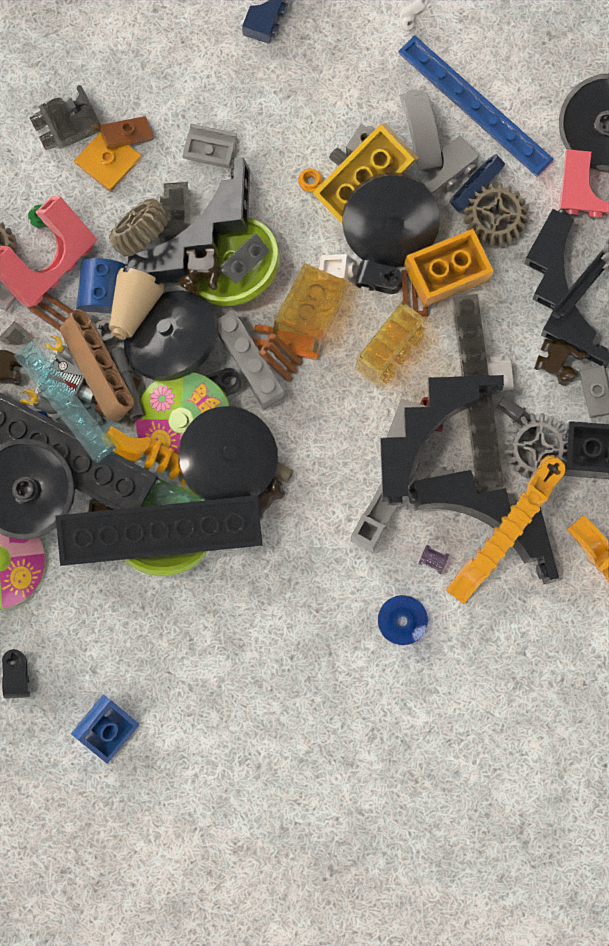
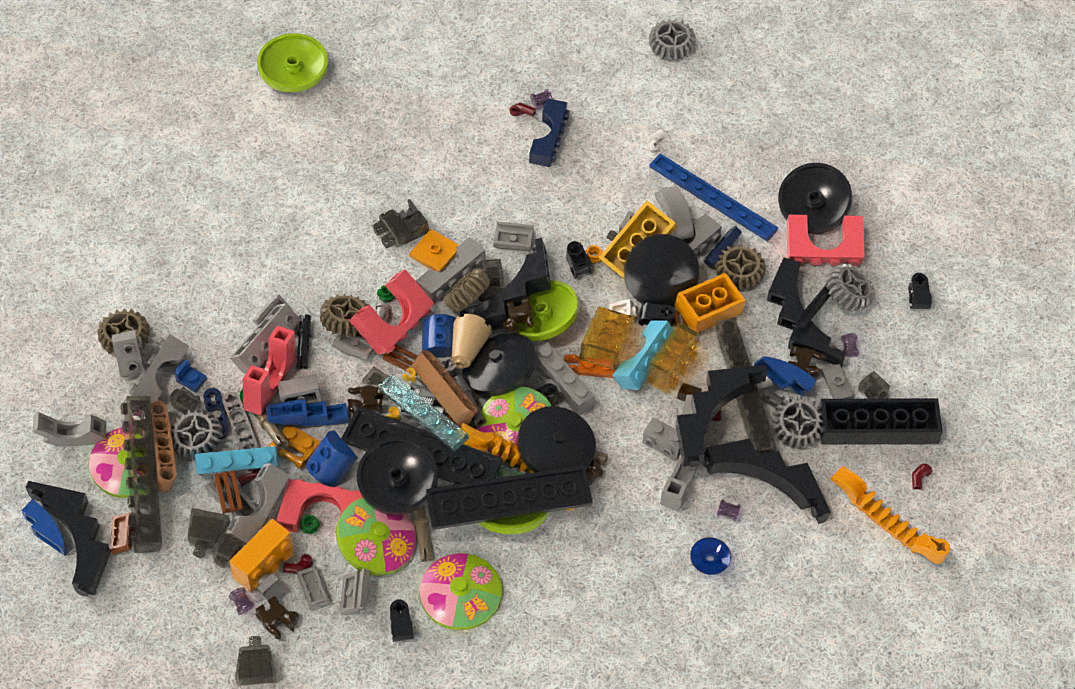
camera: 10 degrees left, 20 degrees down
(30, 248) = (383, 310): none -> light grey bush
(54, 570) = (421, 524): none -> dark tan pin
(92, 638) = (460, 591): none -> dish
(102, 209) = (436, 283): none -> light grey arch
(105, 728) = (479, 654): blue brick -> none
(126, 132) = (448, 231): dark orange plate -> none
(244, 258) = (552, 303): dark grey hinge -> none
(288, 192) = (579, 262): none -> black piece
(291, 366) = (589, 371): dark orange tile -> none
(340, 357) = (635, 370): none -> medium azure arch
(363, 453) = (662, 438): none -> light grey brick
(406, 389) = (685, 390): none -> dark brown slope
(495, 548) = (783, 483): light orange piece -> none
(532, 381) = (787, 374): none -> blue slope

